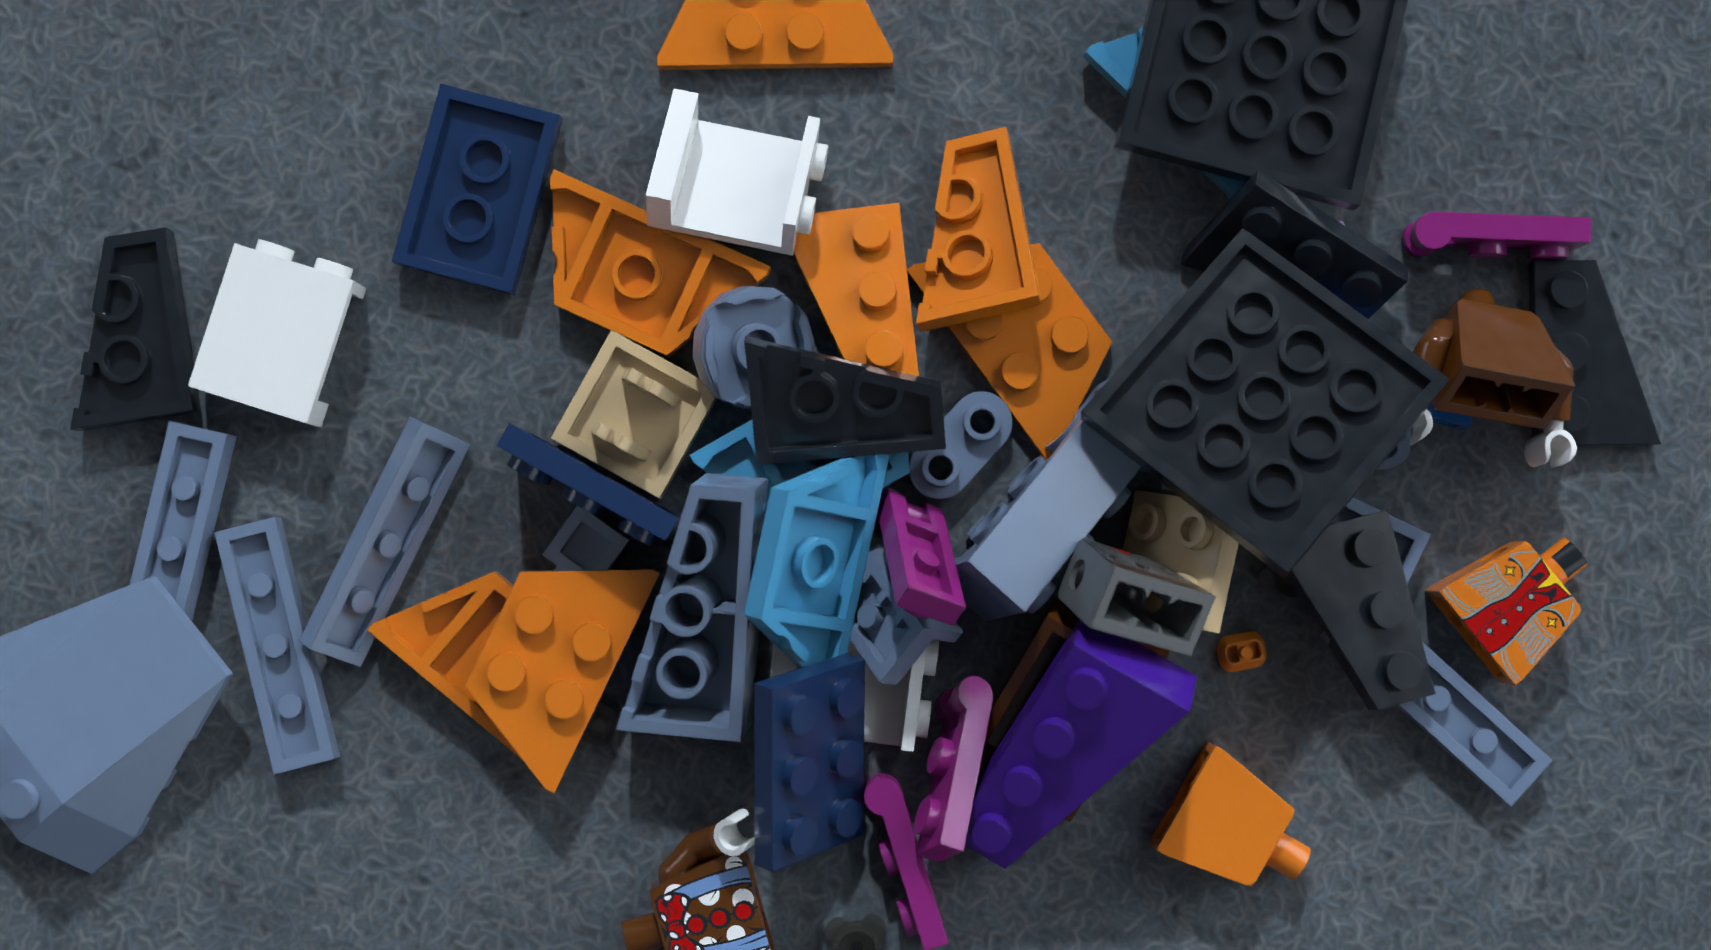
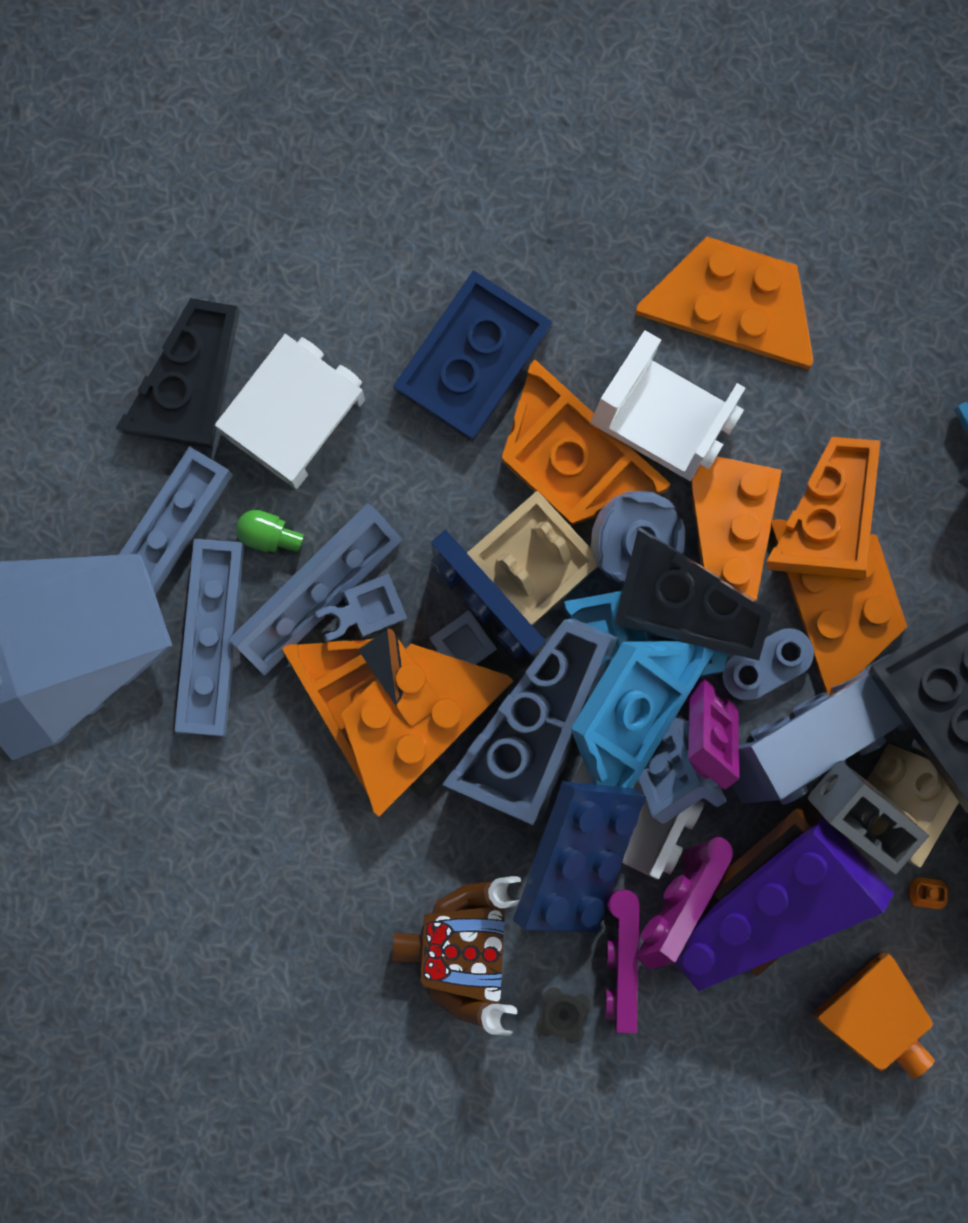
camera: 20 degrees right, 5 degrees down
(302, 493) = (266, 532): none -> bright green cylinder
(457, 542) = (368, 607): none -> sand blue plate
(494, 600) = (385, 657): none -> sticker

